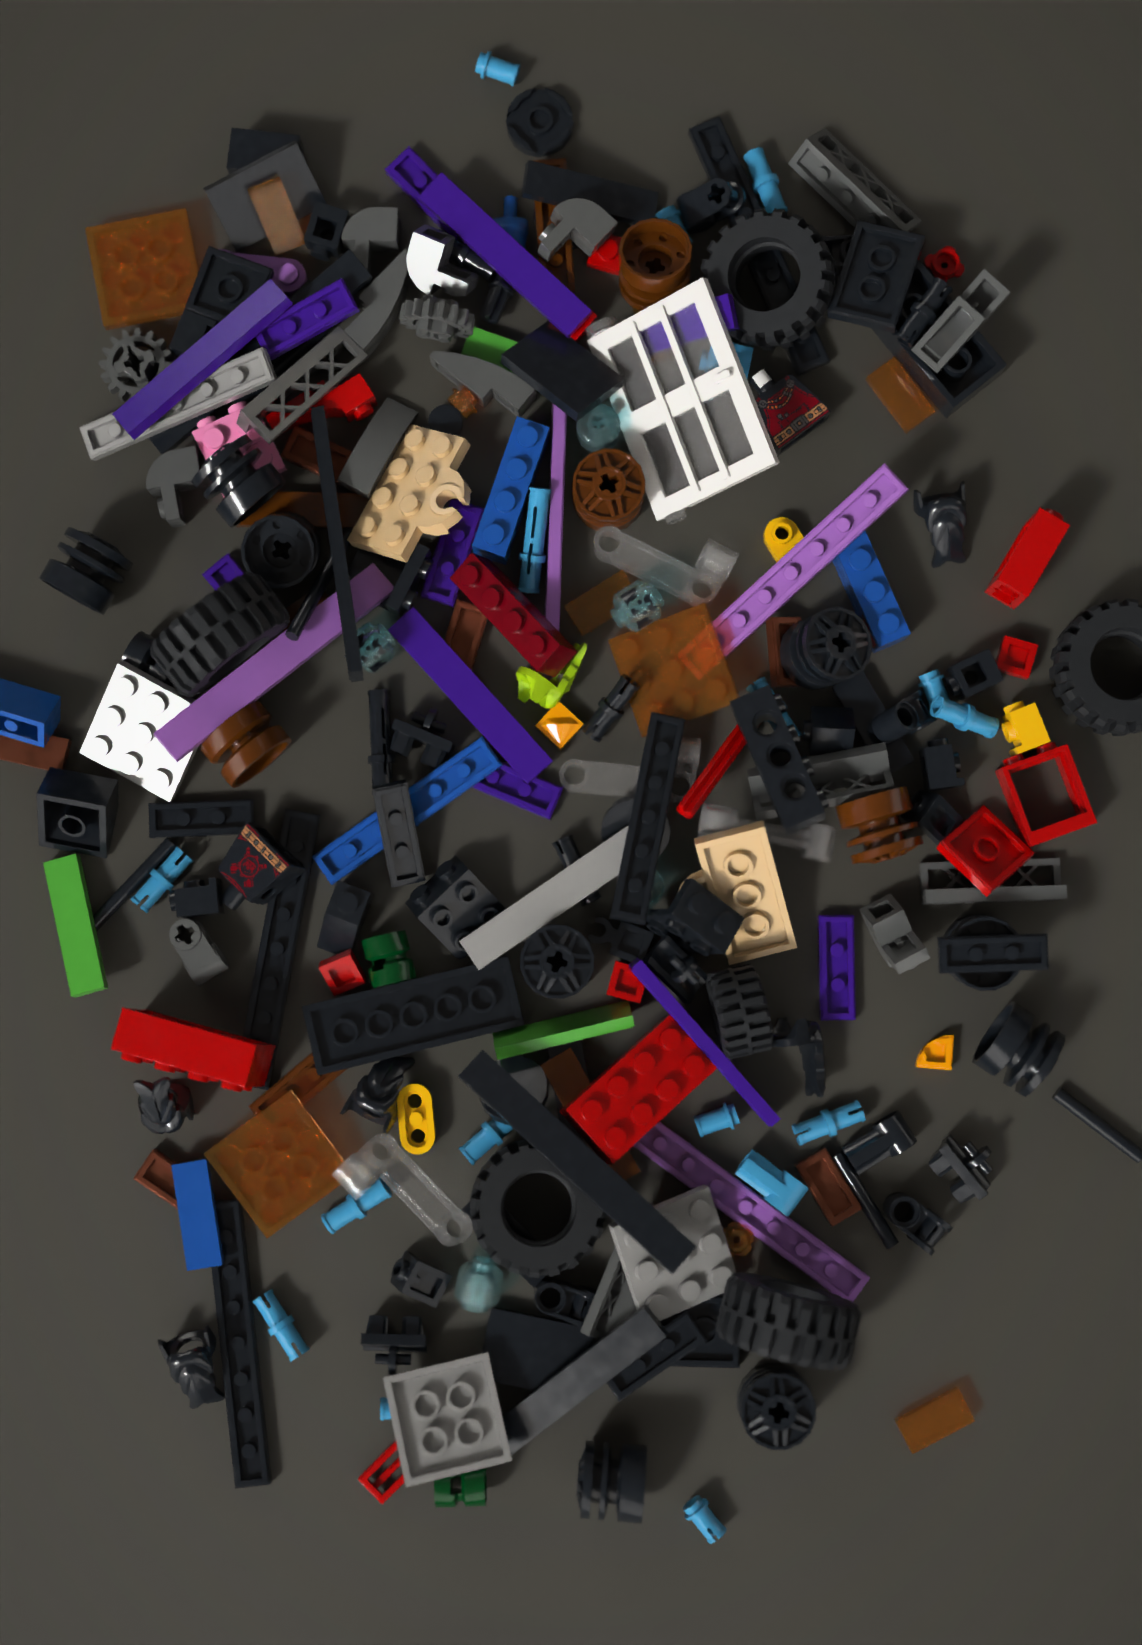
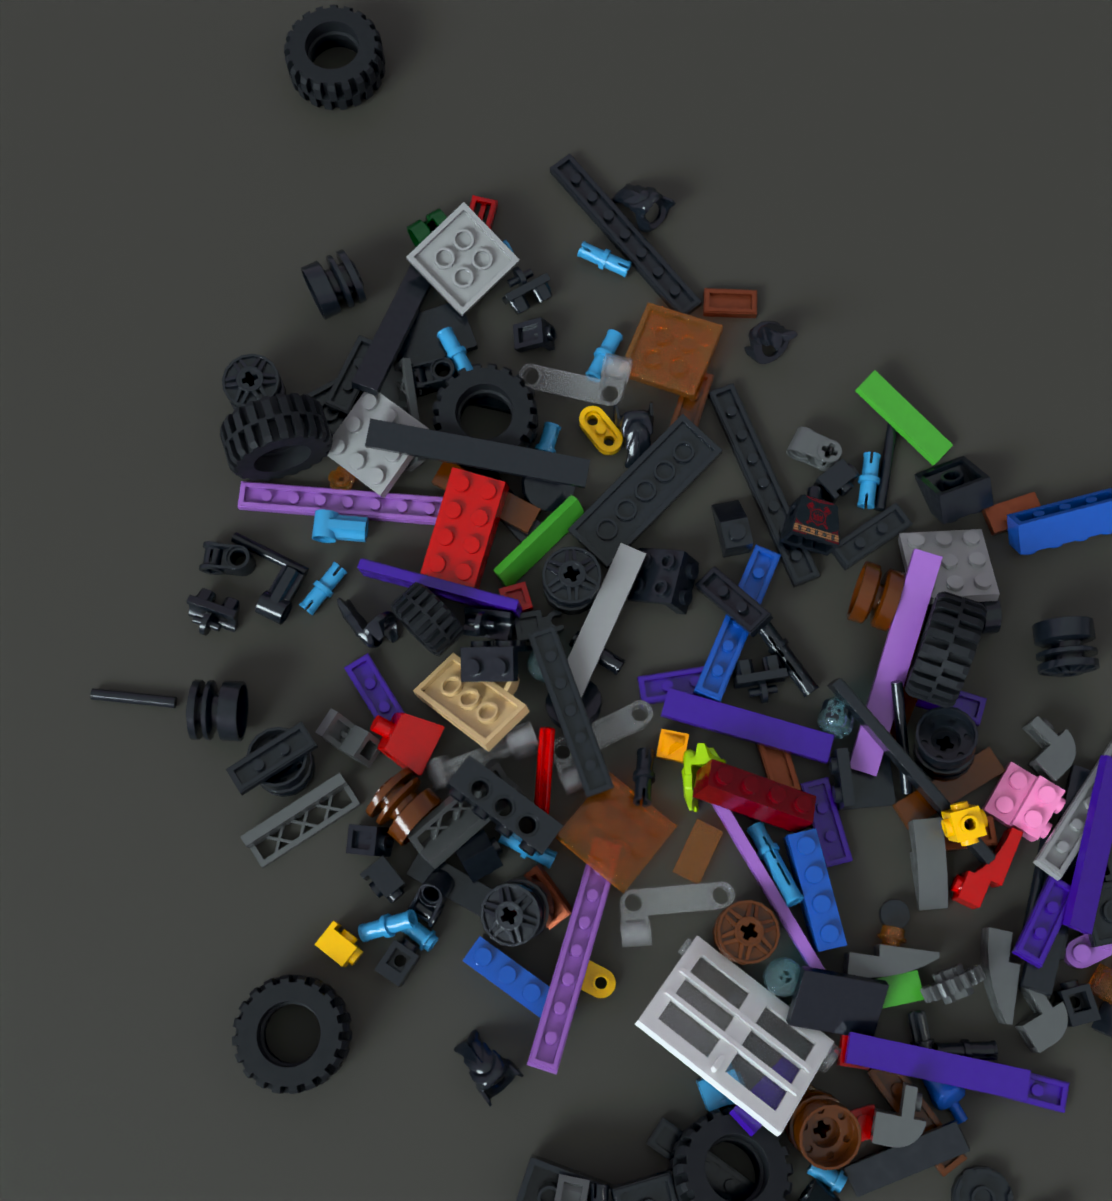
camera: 145 degrees right, 10 degrees down
(192, 1047) = (774, 382): red brick -> none
(197, 1214) = (701, 290): blue tile -> none
(238, 480) = (1009, 770): black wheel -> none
(298, 379) = (1023, 871): dark grey fence -> none
(324, 452) = (954, 821): none -> yellow brick
(342, 972) = (710, 492): red plate -> none
(389, 959) = (685, 517): dark green wheel -> none
(414, 494) = (881, 842): tan plate -> none
(430, 266) = (983, 1023): brick -> none
(478, 1284) = (494, 349): clear light blue head -> none
(522, 1310) = (454, 350): none -> dark azure pin
(637, 606) = (671, 859): clear light blue head -> none
(704, 1519) = (268, 302): dark azure pin -> none
(716, 1120) = (400, 546): dark azure pin -> none
(787, 409) = (656, 1080): torso -> none
(828, 1186) = (299, 548): copper tile -> none
(834, 895) = (407, 740): none -> red torso
(900, 395) = (577, 1150): clear orange tile -> none
(934, 1420) = (144, 444): clear orange tile -> none
(937, 1053) = (274, 679): light orange tile -> none
(985, 850) = (318, 836): red tile -> none
(1016, 657) = (375, 996): red plate -> none
(1027, 557) = (408, 1076): red window -> none
(1073, 784) = (272, 889): red window -> none

